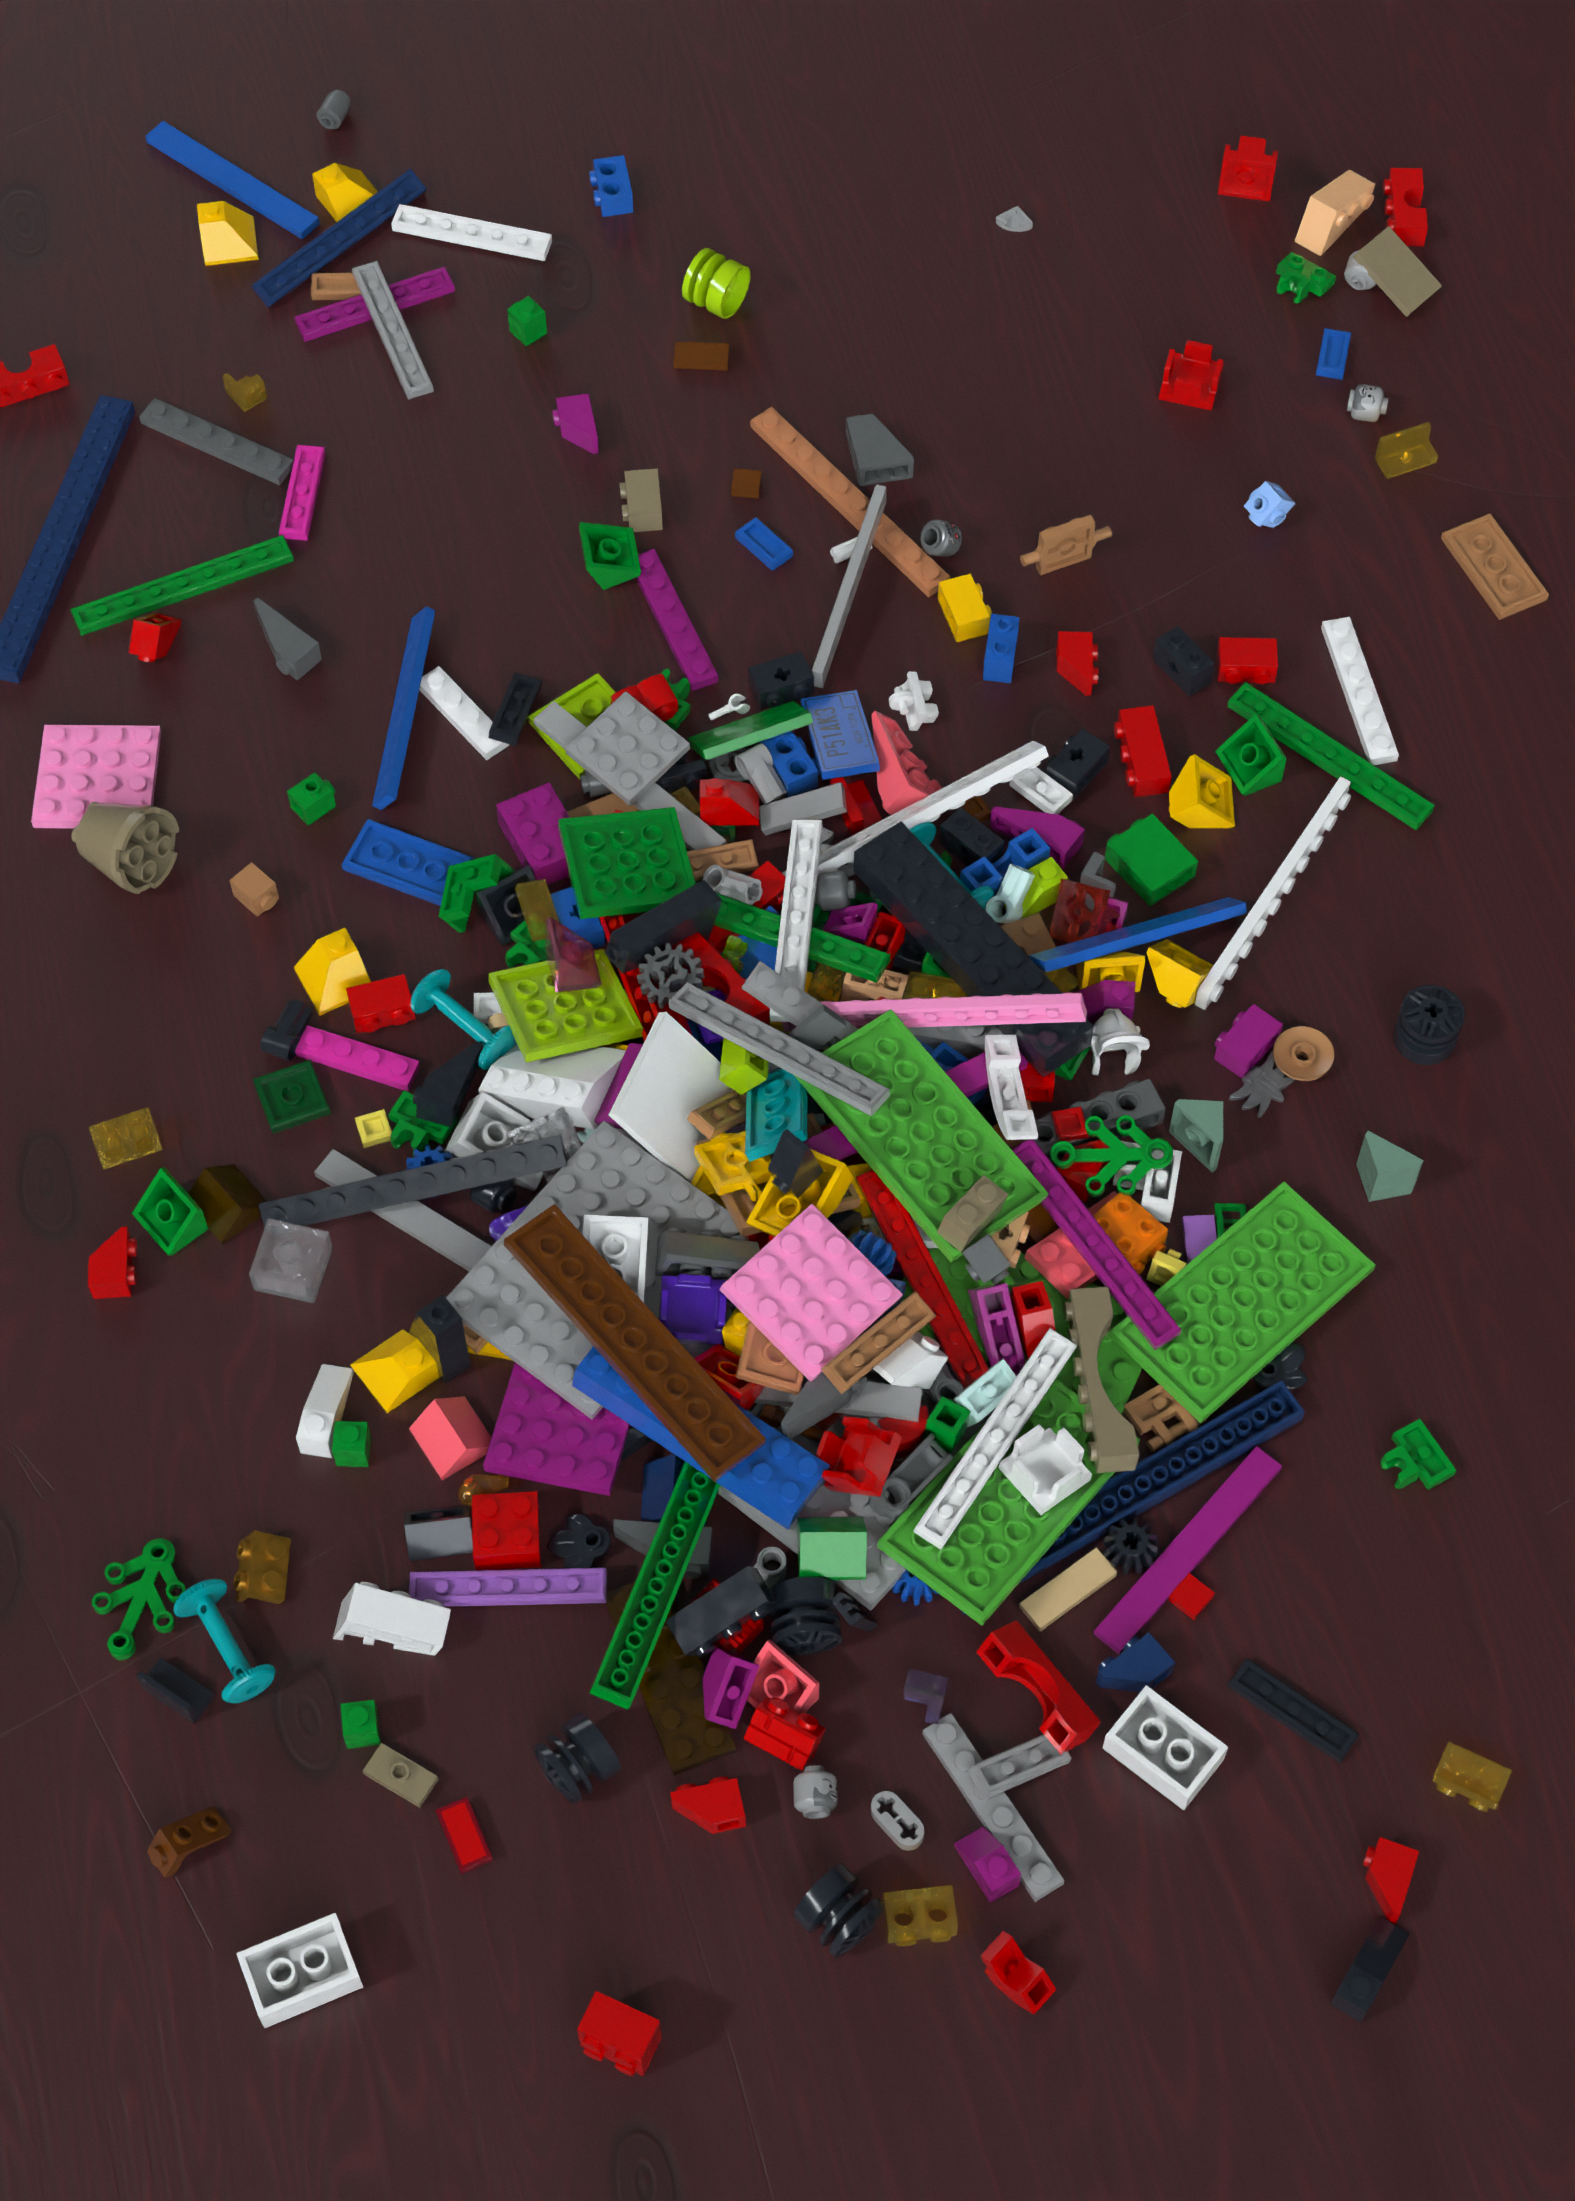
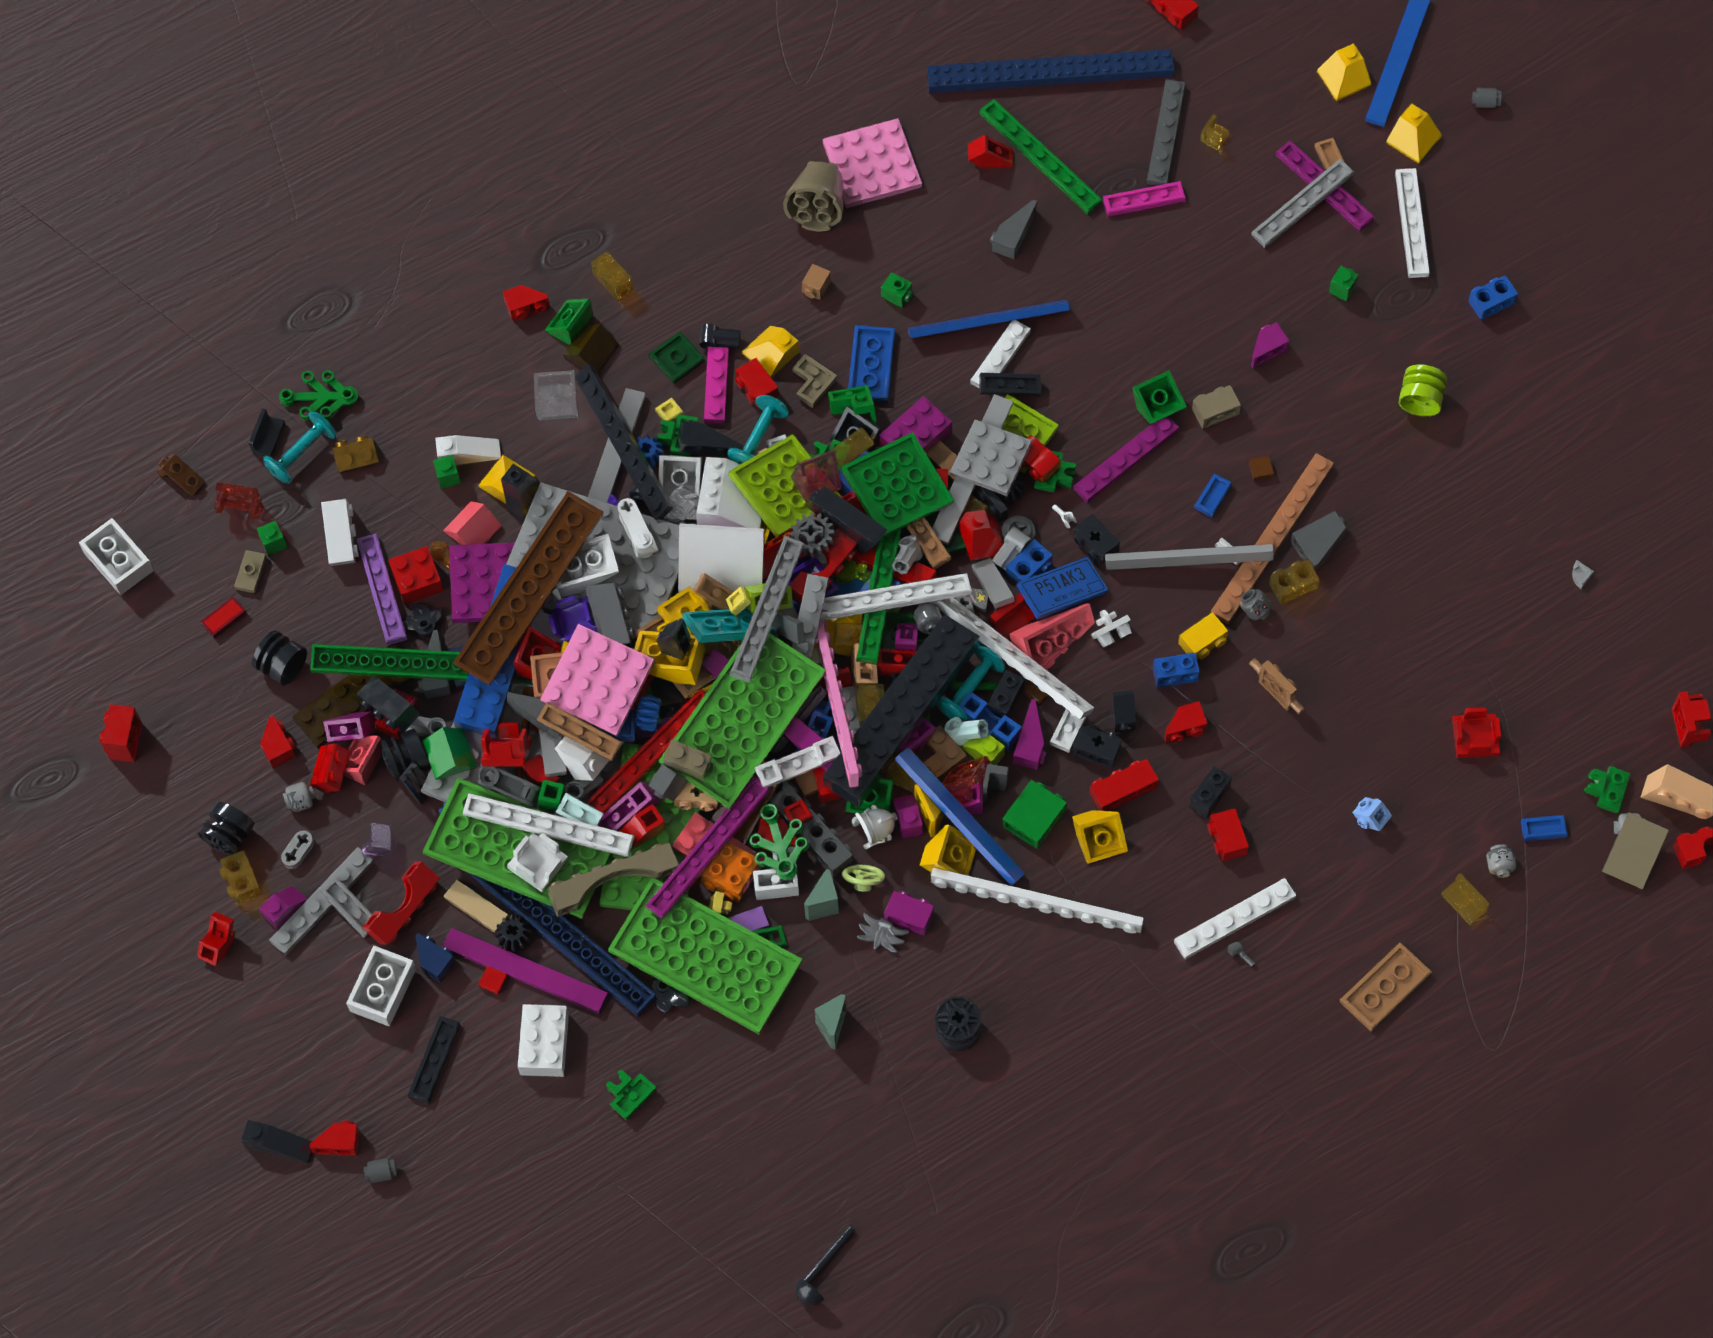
camera: 75 degrees right, 5 degrees up
(277, 1750) = (228, 490): none -> clear red piece
(338, 238) = (1372, 142): dark blue tile -> none
(408, 929) = (817, 379): none -> dark tan plate
(438, 1532) = (405, 535): panel -> none
(581, 1185) = (636, 529): none -> white piece
(701, 356) = (1363, 404): reddish brown tile -> none
(743, 1088) = (738, 600): none -> light yellow tile
(750, 730) = (1044, 531): green tile -> none
(921, 492) = (1296, 585): none -> clear yellow brick
(1043, 718) = (1123, 711): none -> black slope
(1153, 1409) = (610, 921): medium nougat plate -> none
(1182, 1080) = (864, 876): none -> yellowish green piece
(1253, 757) = (1144, 859): green slope -> none
(1307, 1043) = (907, 941): medium nougat dish -> none
(1310, 1548) = (543, 1040): none -> white brick
(1332, 756) = (1167, 911): green plate -> none
(1402, 701) = (1236, 948): none -> dark grey hand
(1453, 1826) = (380, 1170): none -> dark grey brick
(1471, 1776) = (415, 1173): clear yellow bracket -> none

